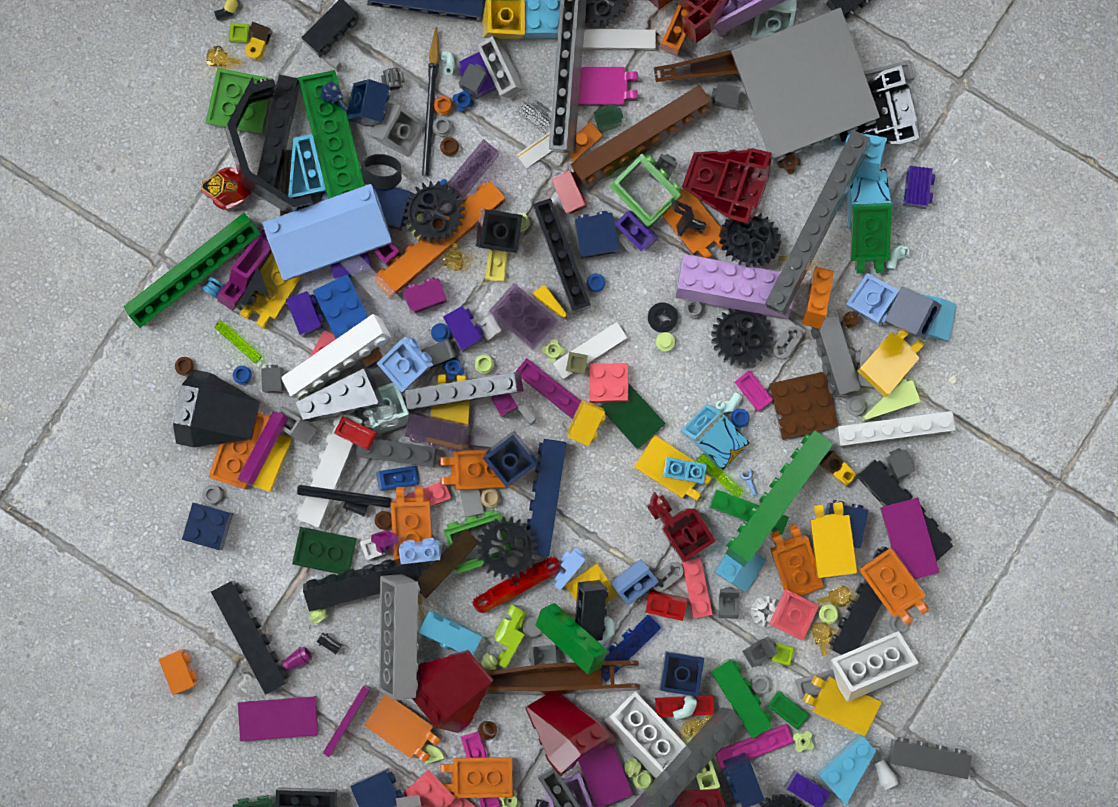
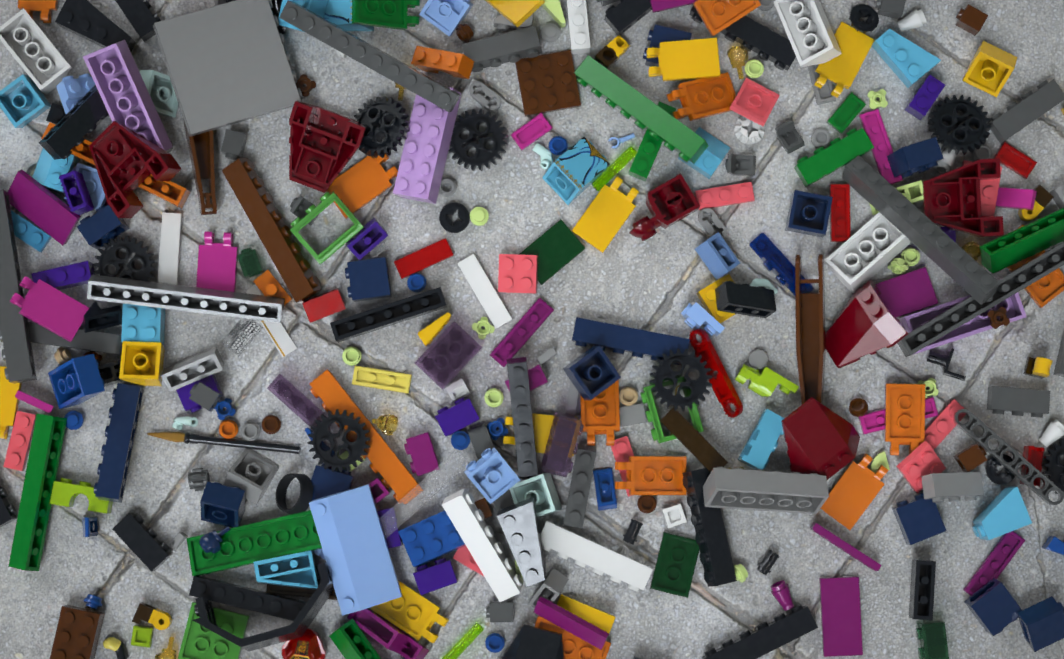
camera: 85 degrees left, 0 degrees up
(256, 286) = (406, 624): black slope -> none
(344, 496) = (622, 542): black axle -> none
(355, 433) = (560, 528): red tile -> none
(384, 539) = (667, 502): magenta tile -> none
(385, 416) = (545, 496): clear plate -> none
(420, 551) = (682, 466): light blue plate -> none
(489, 662) = (791, 403): yellowish green plate -> none
(498, 230) = (361, 376): black brick -> none
(544, 654) = (786, 348): dark grey bracket -> none
(571, 638) = (772, 319): green brick -> none
(576, 363) = (497, 304): olive plate -> none
(586, 422) = (557, 297): yellow brick -> none
(620, 289) = (423, 258): none -> red tile
(666, 605) = (741, 226): red hinge -> none
(684, 470) = (608, 202): medium azure slope -> none
(687, 220) = (358, 187): black bracket -> none
(687, 710) = (843, 208): light aqua arm -> none
(690, 727) = (860, 206): clear yellow piece -> none
(760, 421) = (563, 125): clear plate -> none
(784, 654) = (792, 113): lime tile -> none
(821, 633) = (774, 77): clear yellow piece -> none
(894, 725) = (864, 11): none -> black gear

